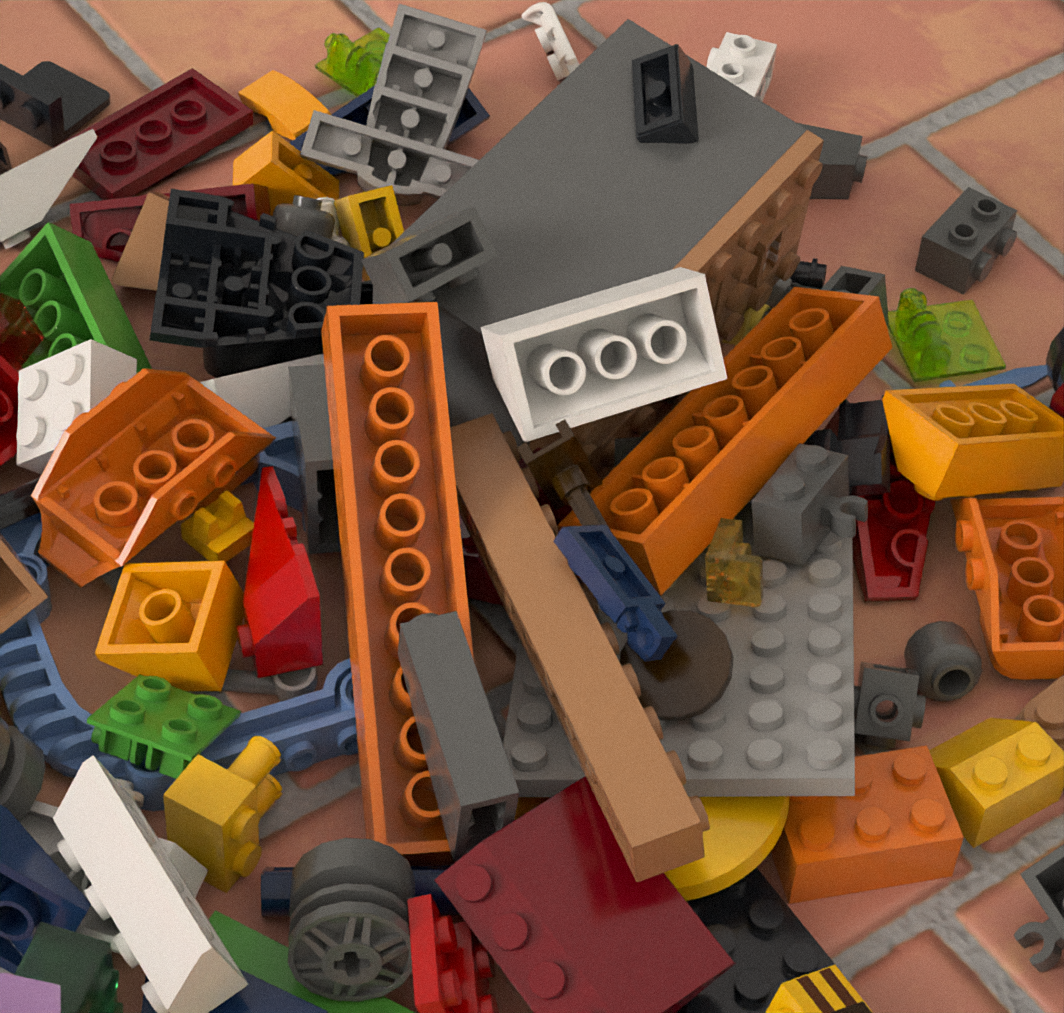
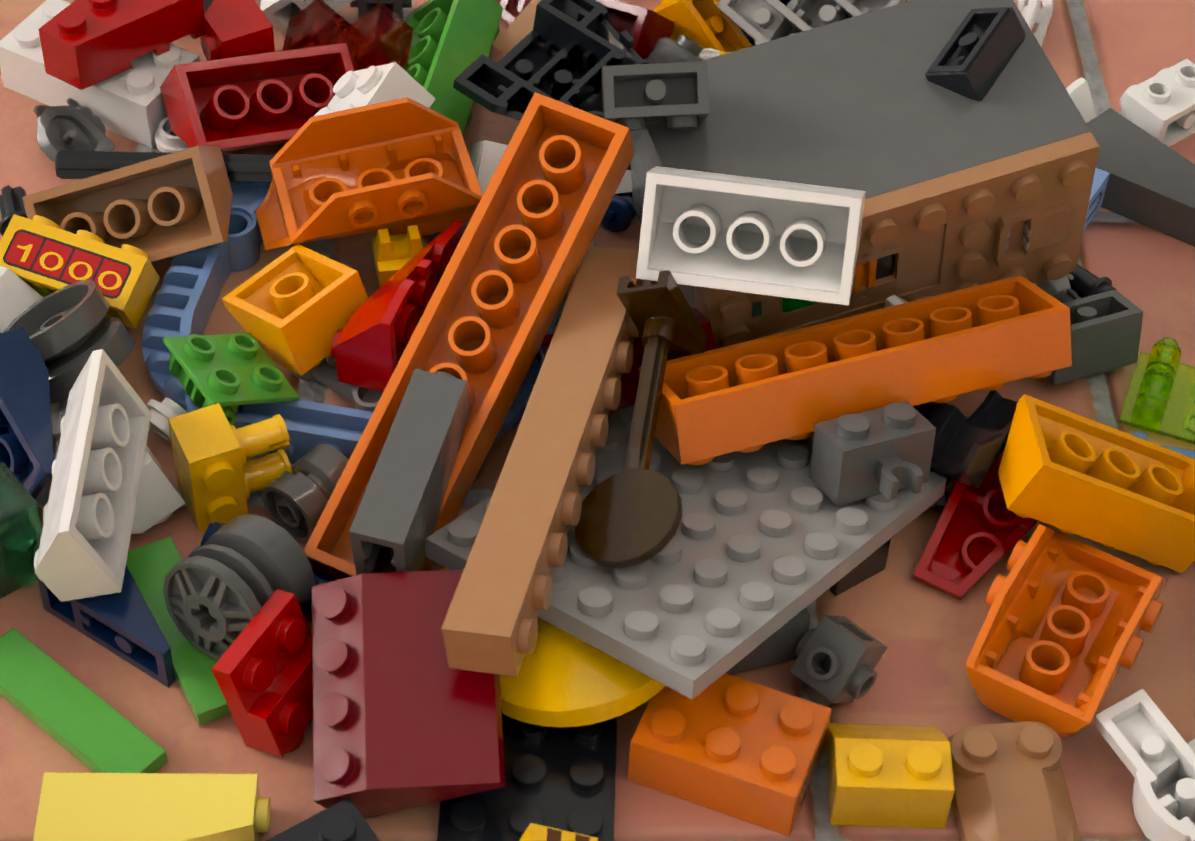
camera: 35 degrees right, 0 degrees up
(317, 795) = (300, 498): none -> dark grey wheel
(618, 587) = (616, 426): dark blue hinge -> none
(730, 569) = (761, 468): clear yellow bracket -> none
(944, 660) = (927, 656): dark grey head -> none

